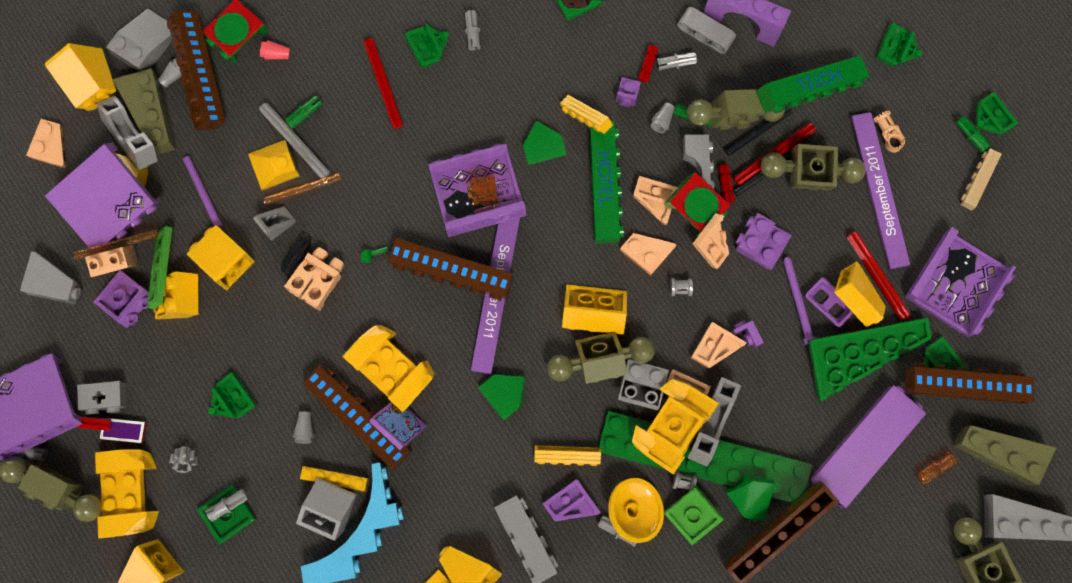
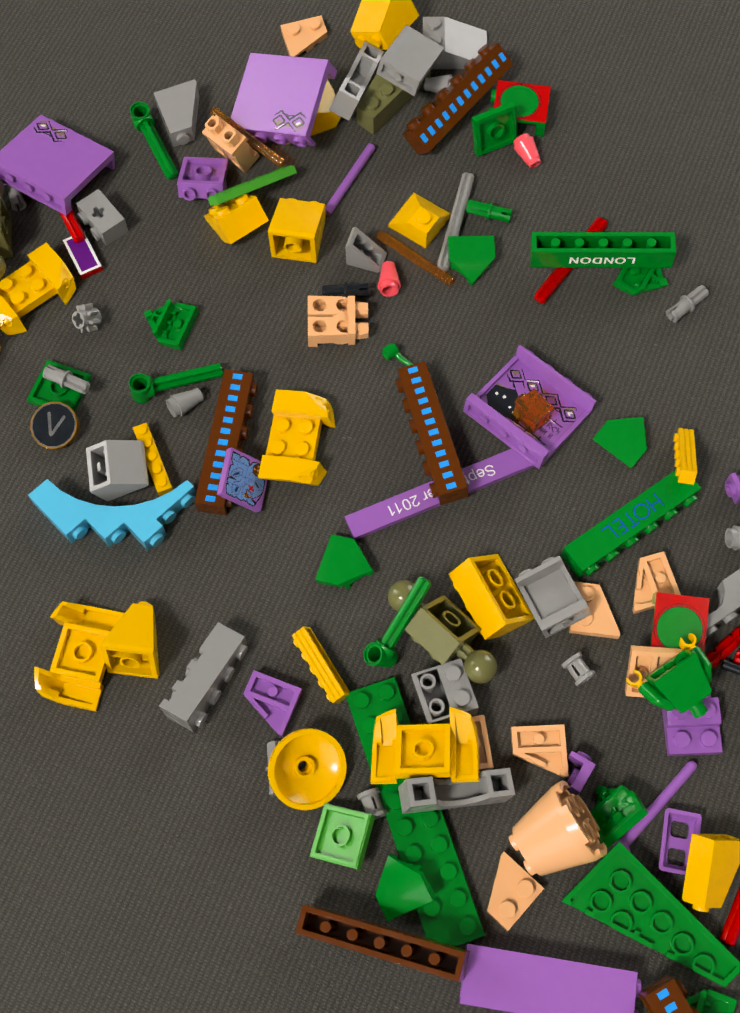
camera: 60 degrees right, 10 degrees down
(44, 314) = (146, 126): none -> green axle
(142, 83) = (409, 60): none -> light grey panel
(242, 62) = (494, 128): none -> green tile
(257, 535) = (54, 425): none -> black tile
(281, 426) = (170, 381): none -> green axle
(310, 220) = (389, 281): none -> coral cone
(331, 149) = (471, 255): none -> green slope
(396, 59) = (602, 249): none -> green brick
(584, 399) = (383, 651): none -> green axle
(622, 269) = (552, 596): none -> light grey panel
(737, 230) = (680, 681): none -> green torso
(782, 375) = (557, 833): none -> light nougat cone
(789, 329) = (616, 812): none -> green slope
(795, 429) = (511, 892): none -> light nougat wing

